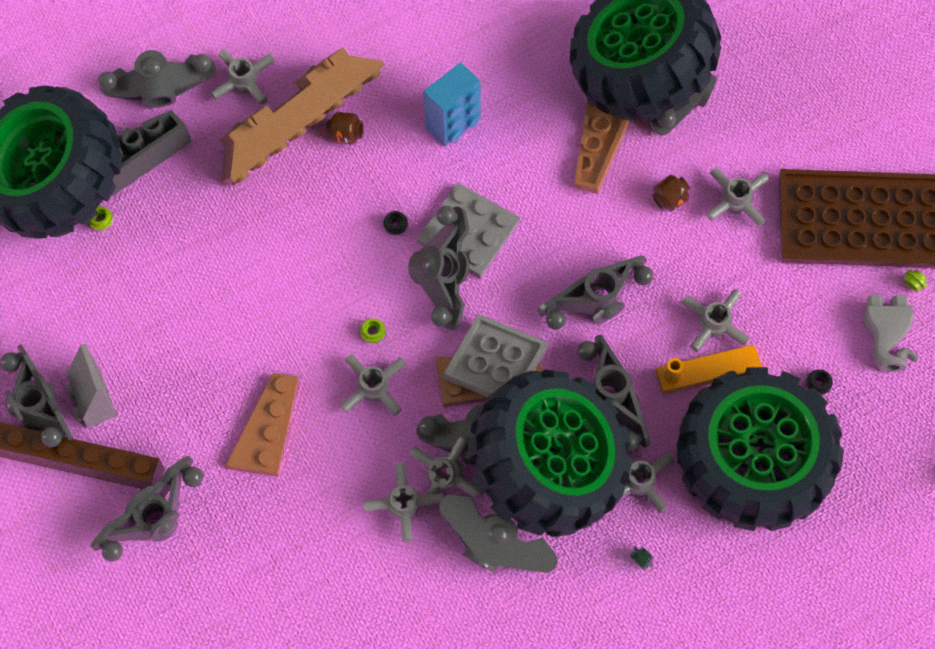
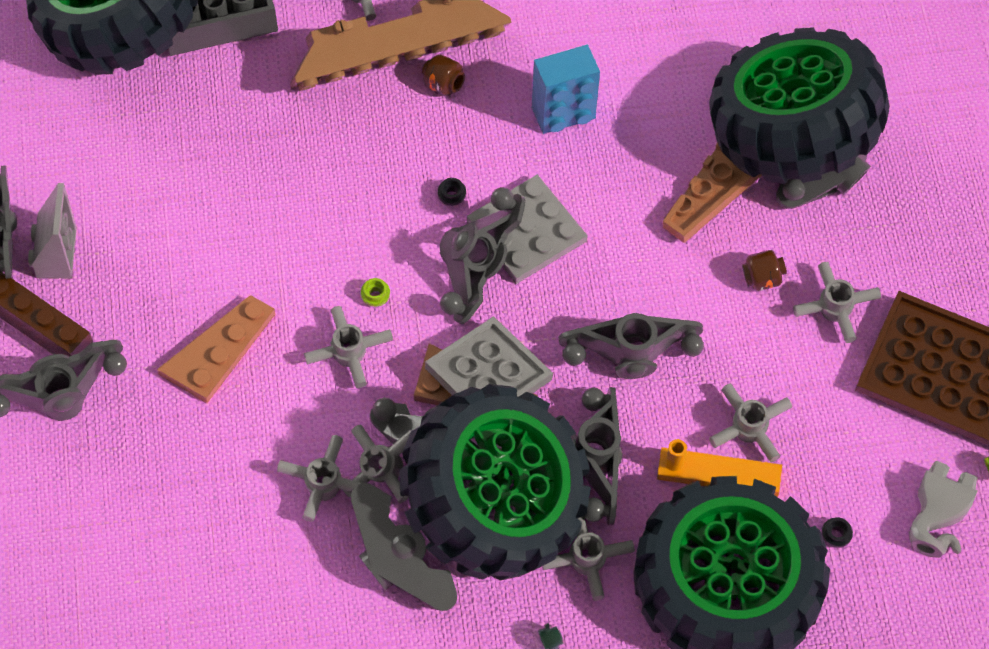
camera: 20 degrees right, 5 degrees down
(104, 224) = (148, 67): lime plate -> none

